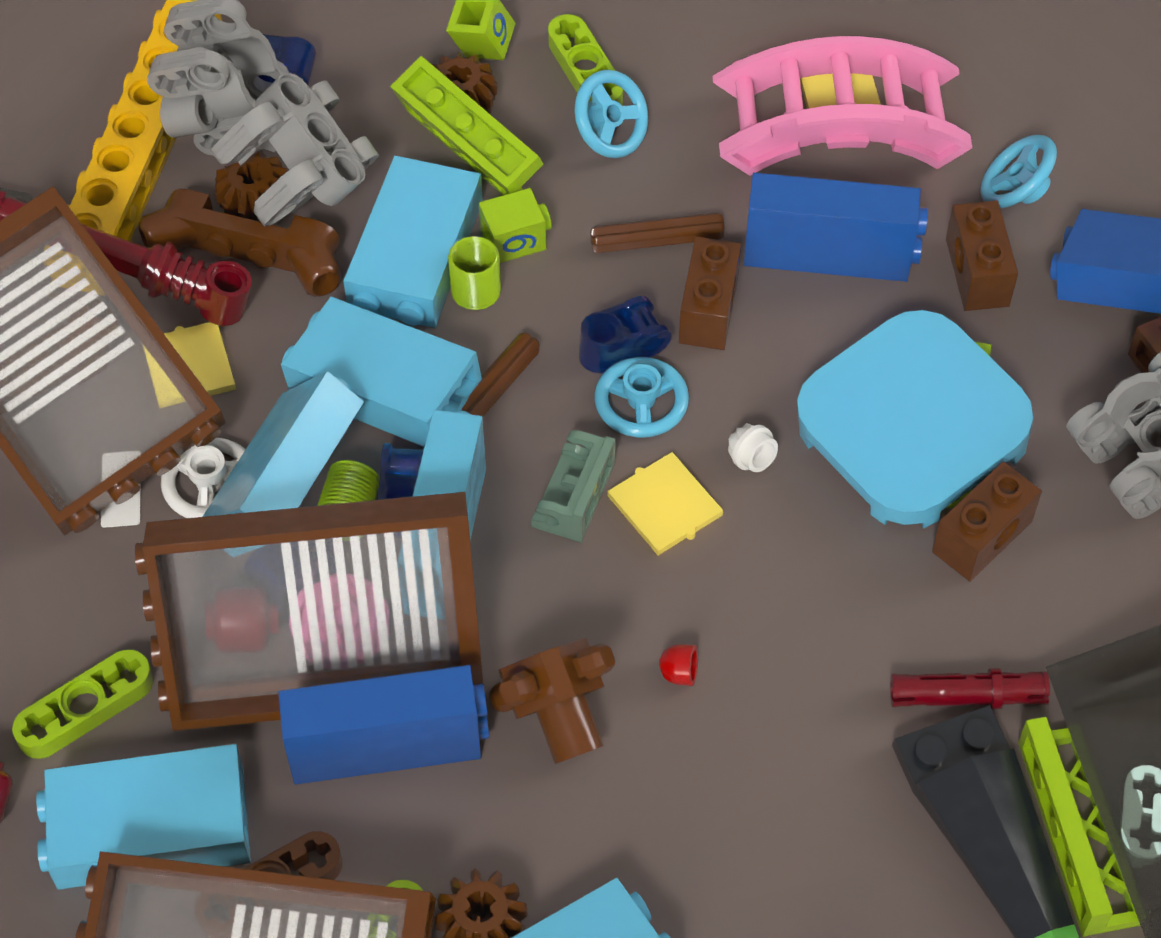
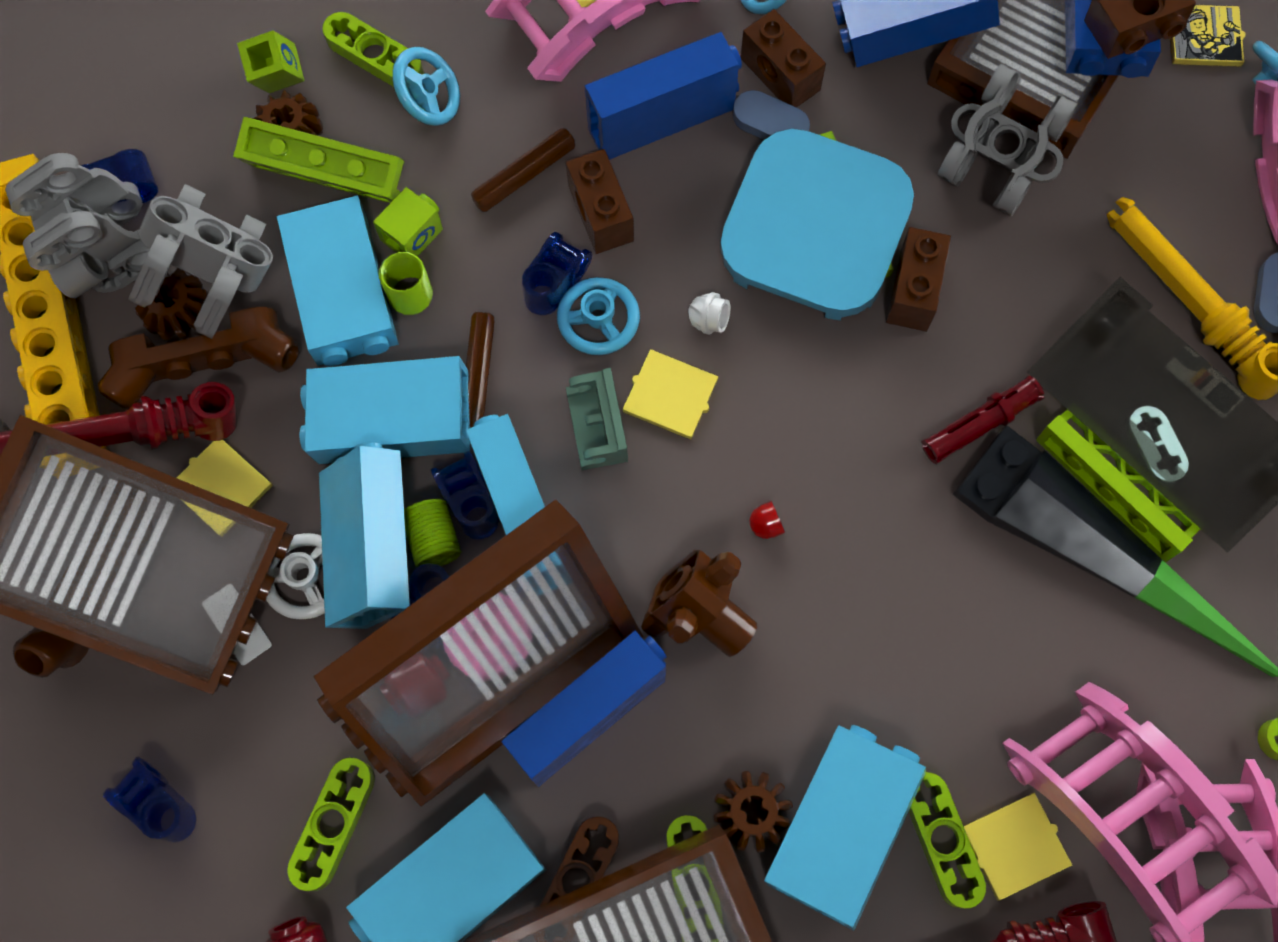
camera: 30 degrees left, 15 degrees up
(930, 291) = (766, 115): none -> sand blue tile

